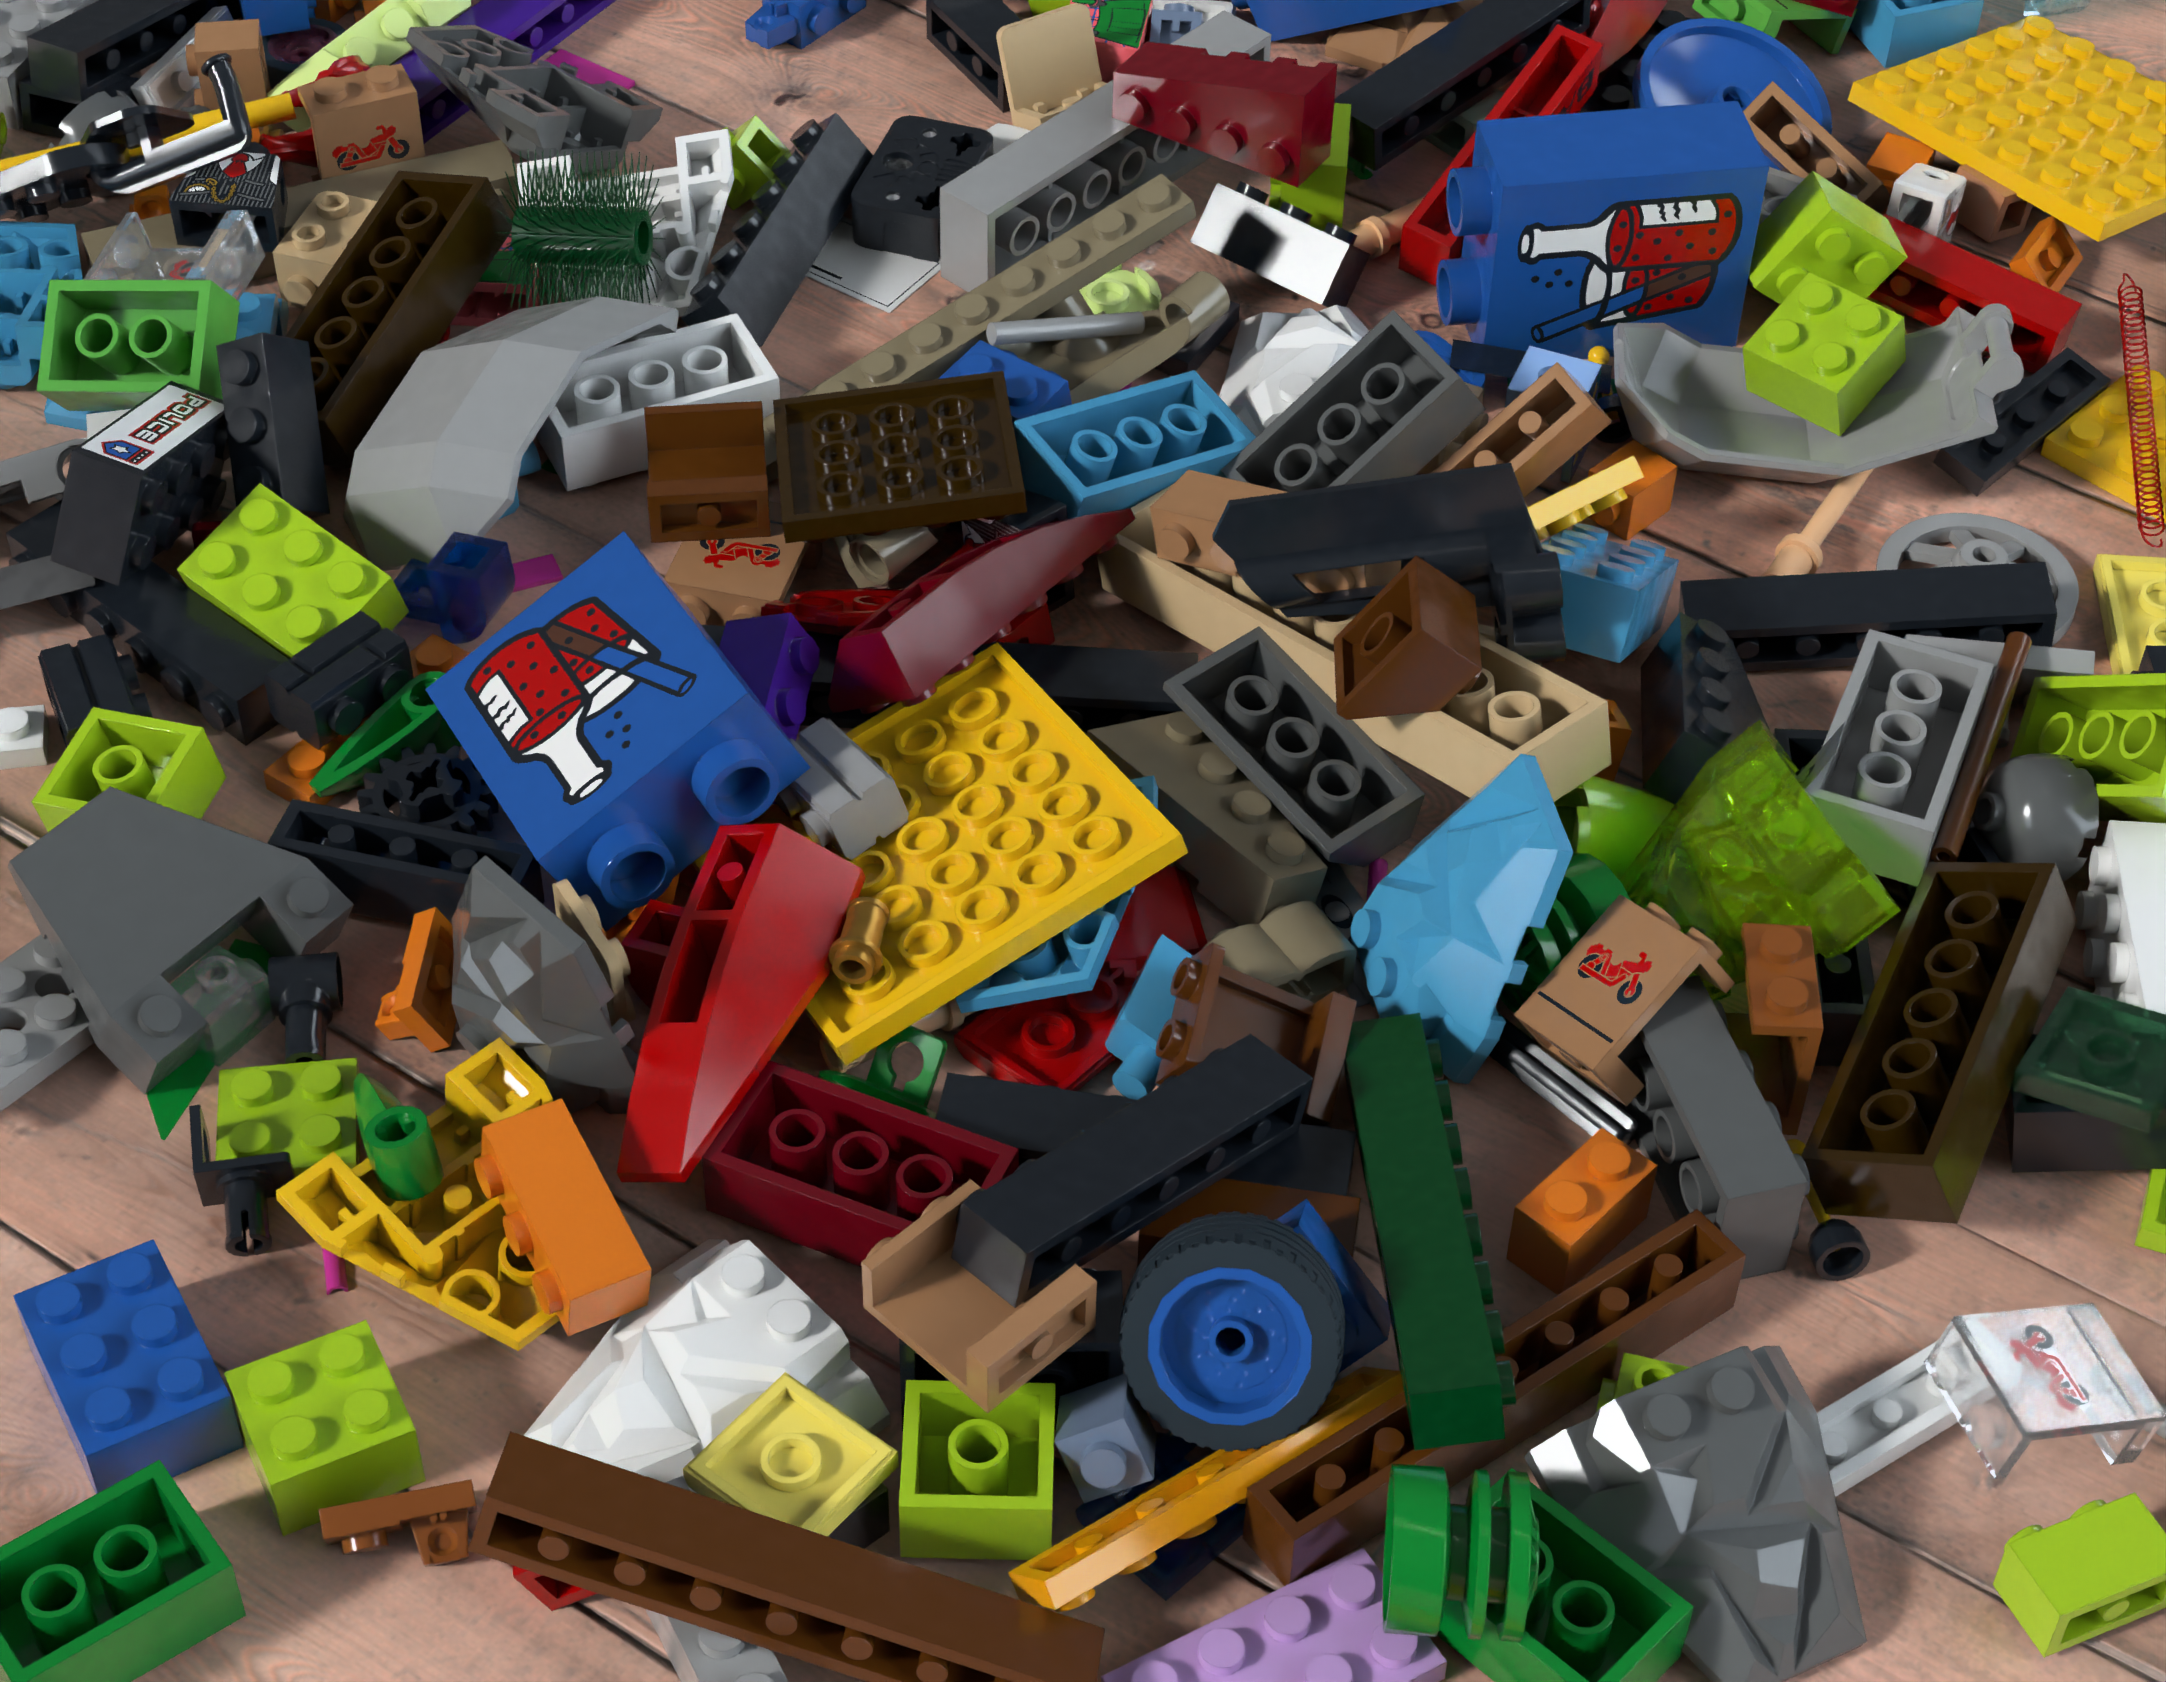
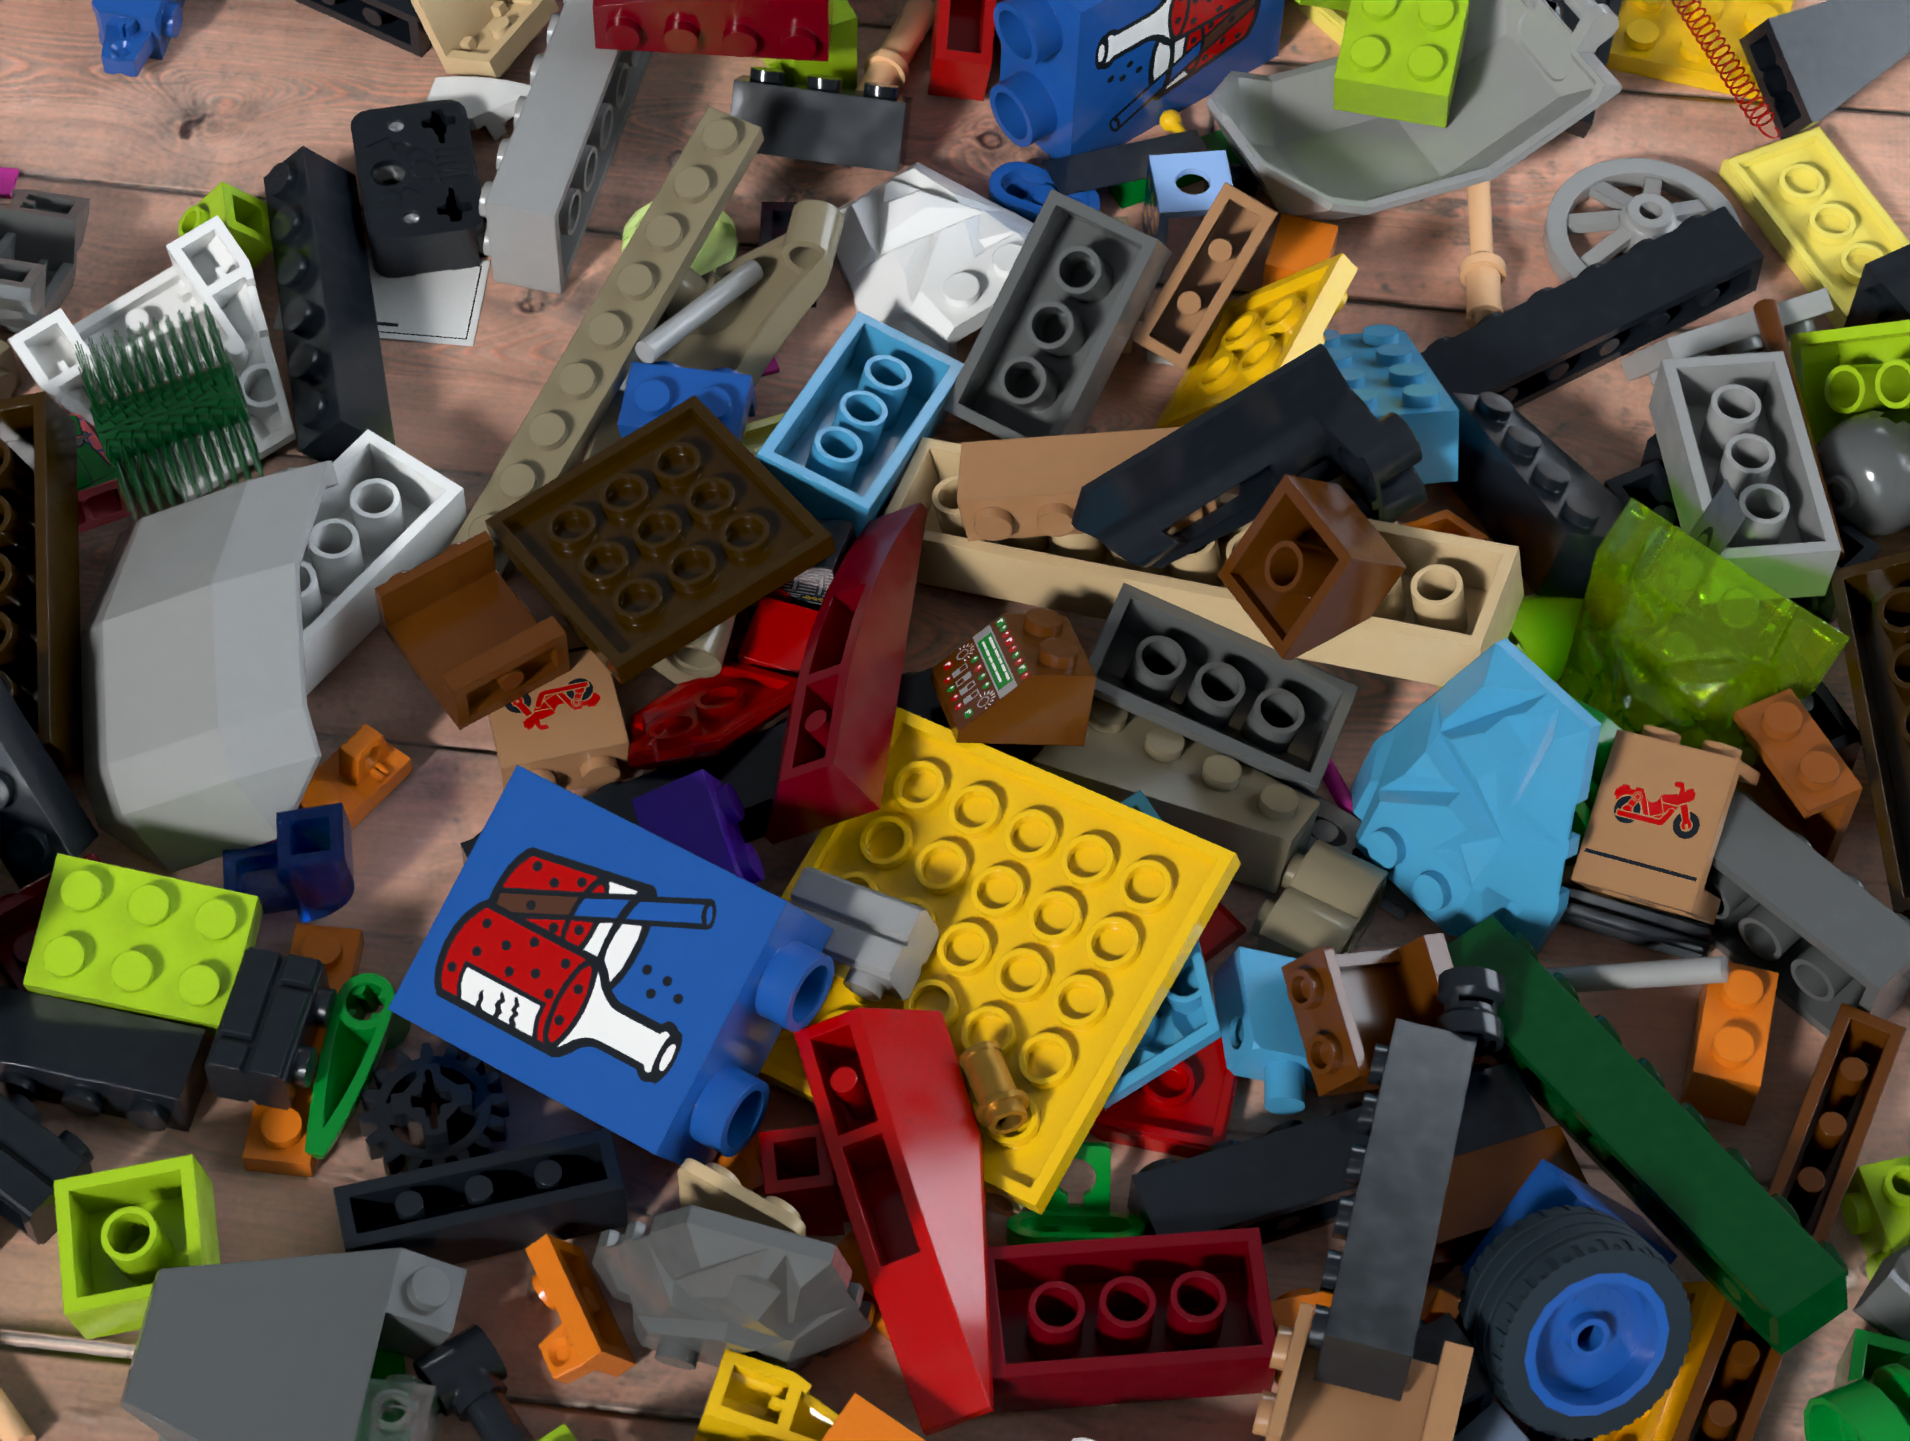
camera: 30 degrees left, 10 degrees up
(550, 557) = (358, 775): none -> orange hinge
(1112, 663) = (1018, 683): none -> reddish brown slope
(1334, 1058) = (1472, 1004): none -> black wheel
(1528, 1118) = (1646, 974): none -> light grey bar

